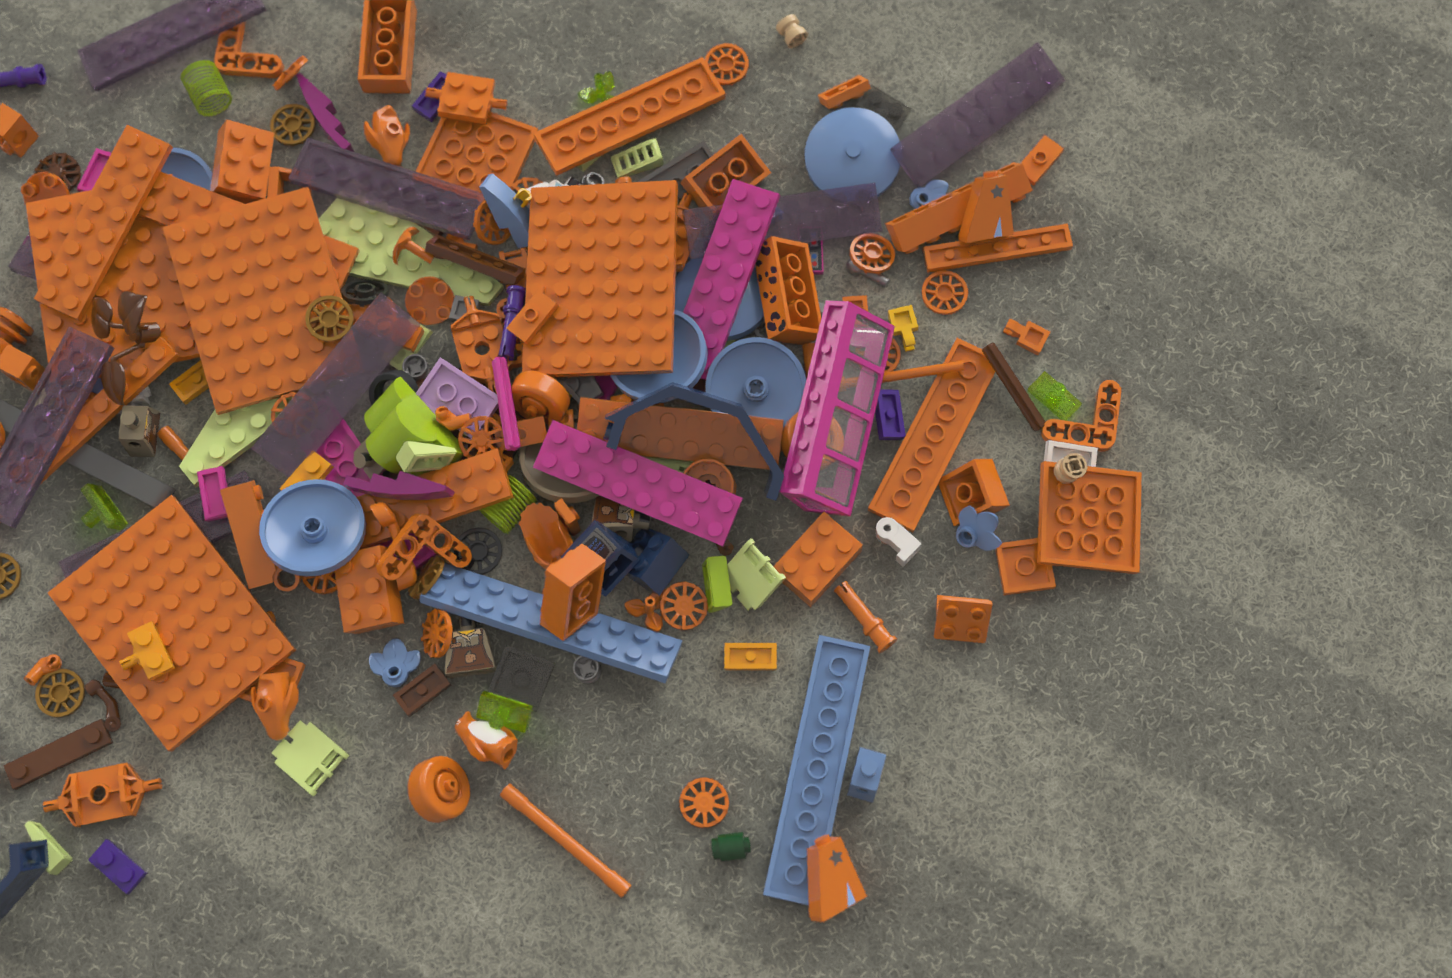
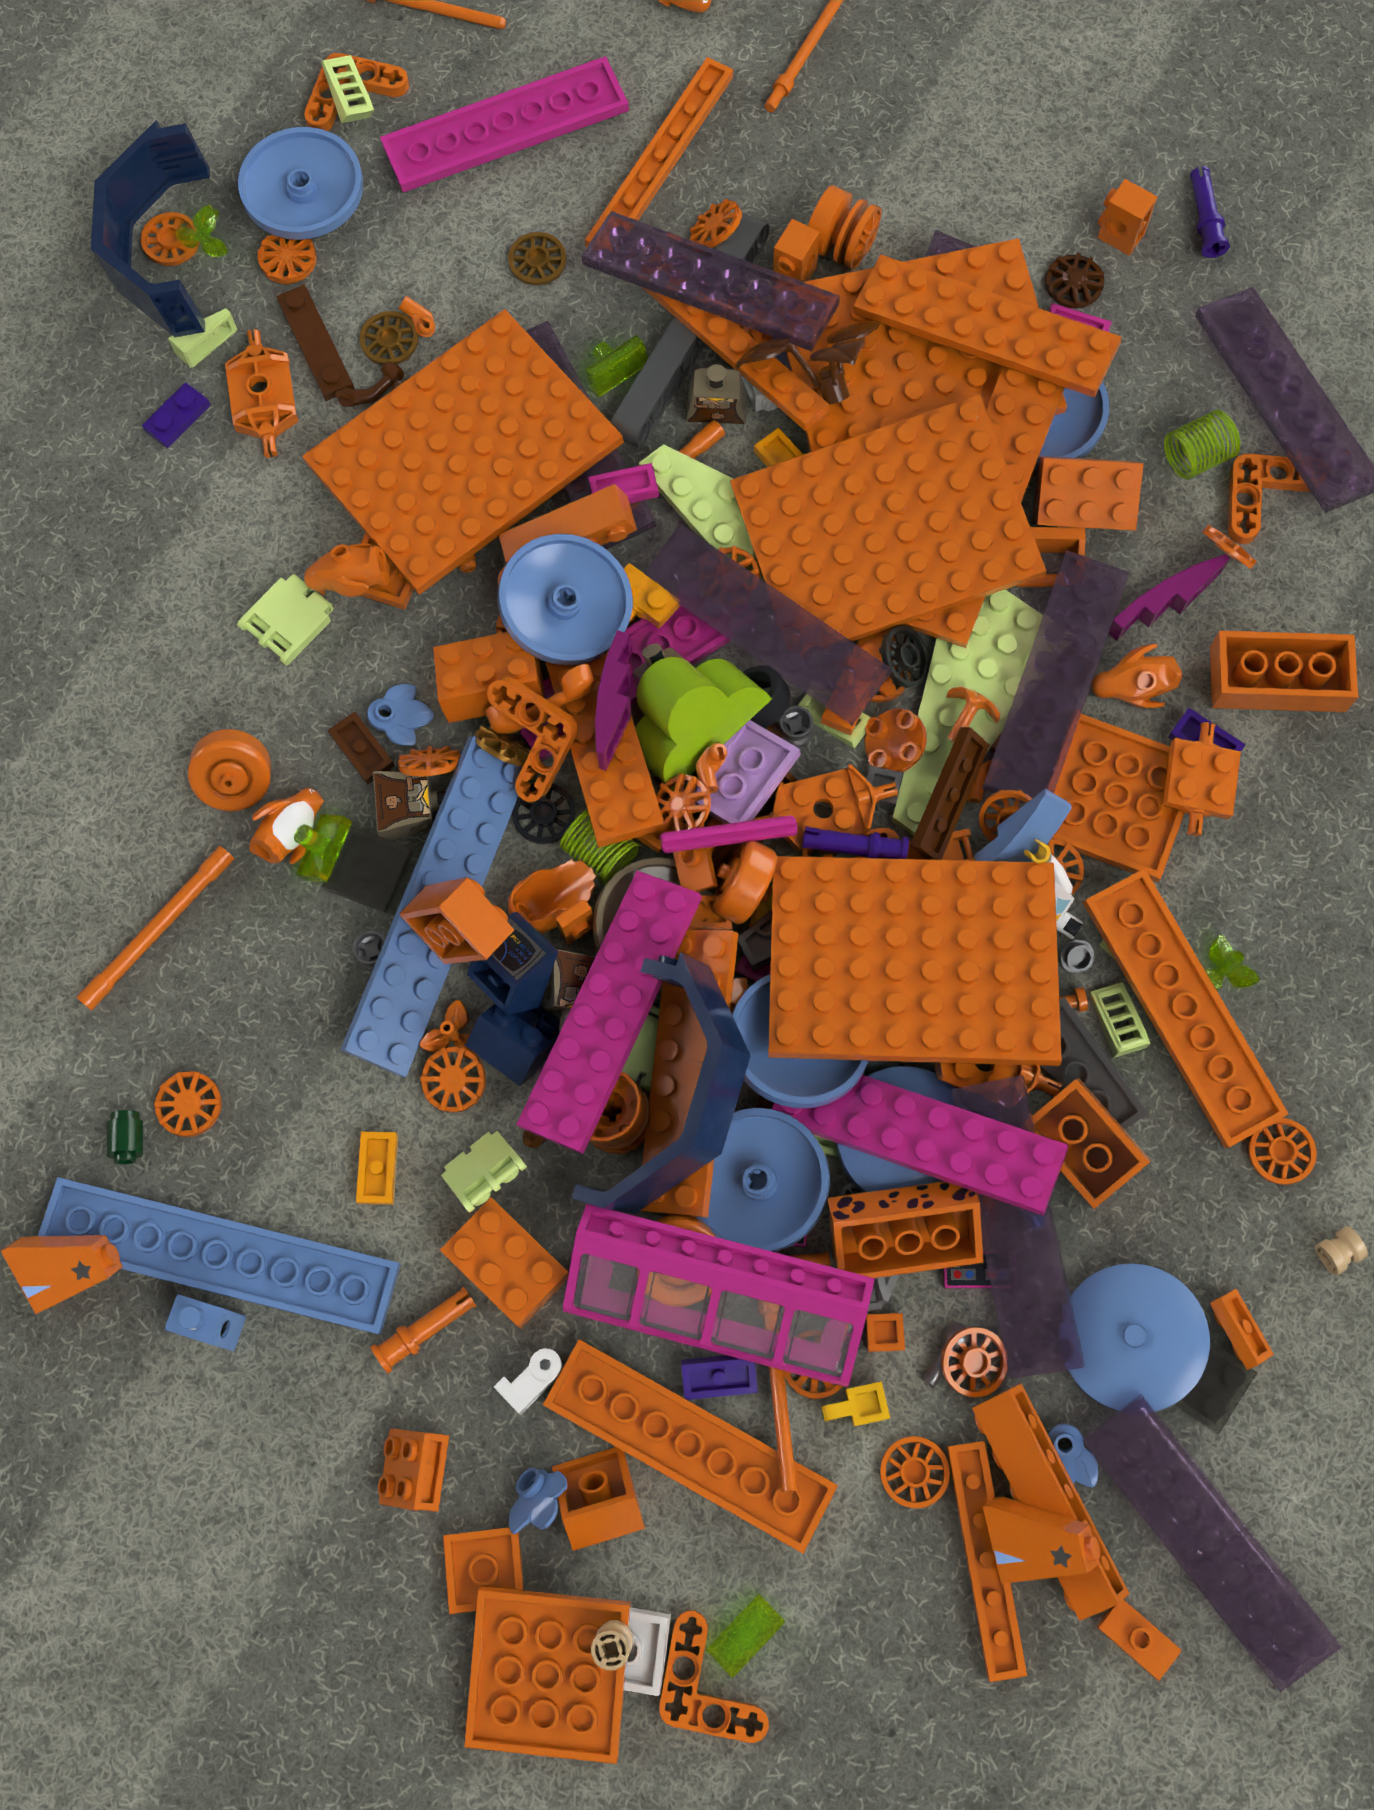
camera: 90 degrees right, 0 degrees up
(43, 186) = (1046, 263): orange dish -> none
(148, 652) = (419, 422): light orange plate -> none
(292, 124) = (1156, 557): pearl gold wheel -> none
(329, 318) = (856, 607): pearl gold wheel -> none
(424, 456) = (648, 722): yellowish green slope -> none
(532, 317) = (852, 865): orange plate -> none
(716, 583) = (478, 1124): lime slope -> none
(1014, 386) = (757, 1569): reddish brown axle -> none
(1030, 336) = (840, 1602): orange plate -> none

